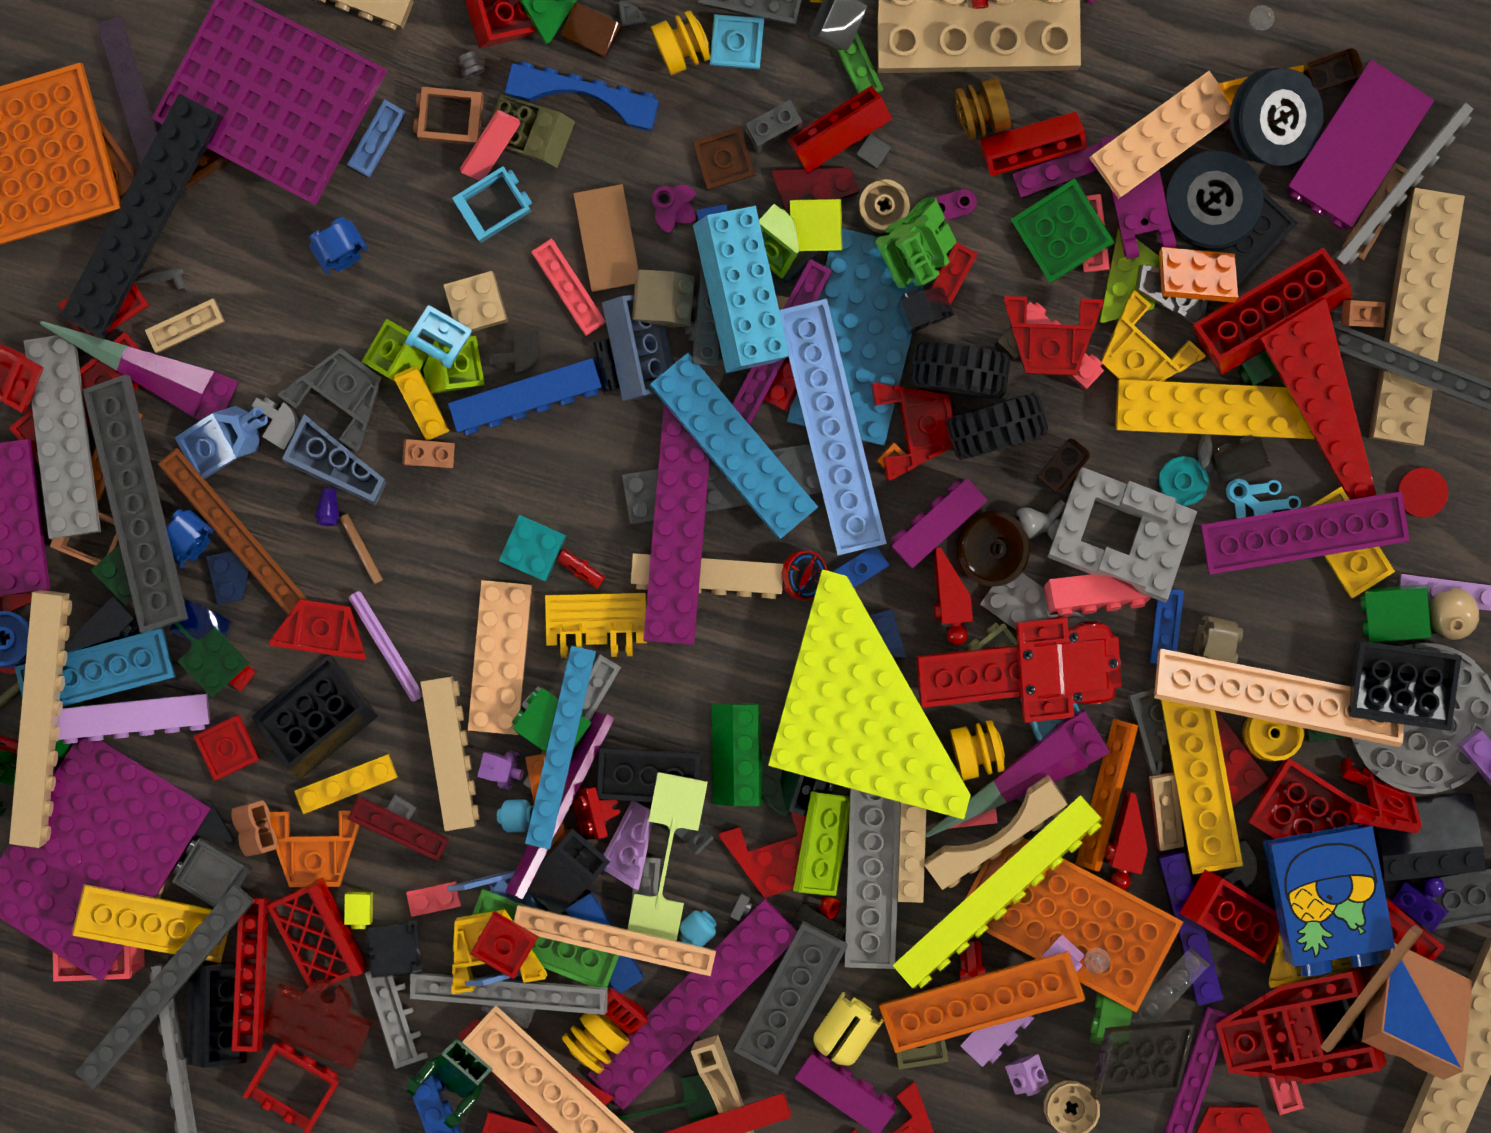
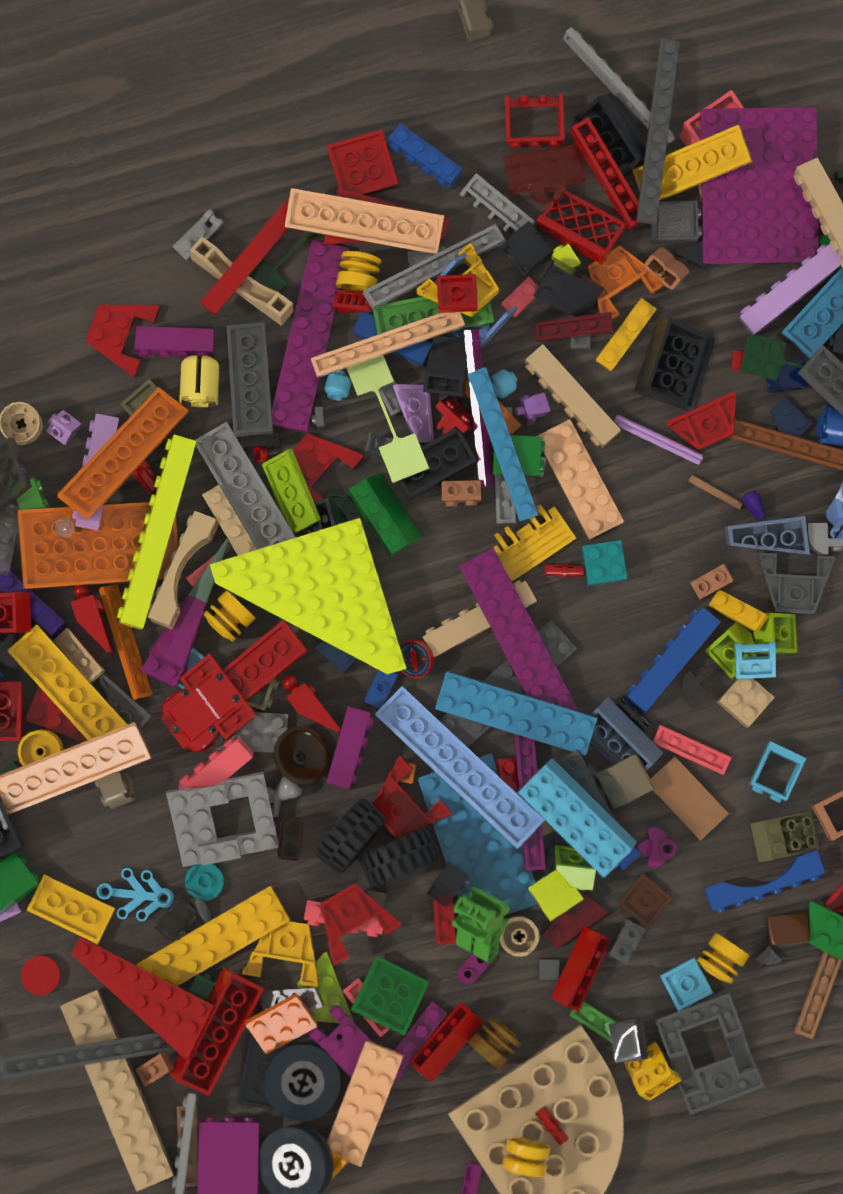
camera: 150 degrees right, 5 degrees down
(226, 747) = (718, 309): red tile -> none
(378, 873) = (567, 289): none -> black slope
(461, 1073) = (433, 197): dark green torso -> none
(490, 145) = (803, 809): coral tile -> none
(638, 725) = (461, 492): none -> nougat bracket
(1166, 624) = (155, 779): blue plate -> none
(1305, 533) = (102, 897): magenta plate -> none

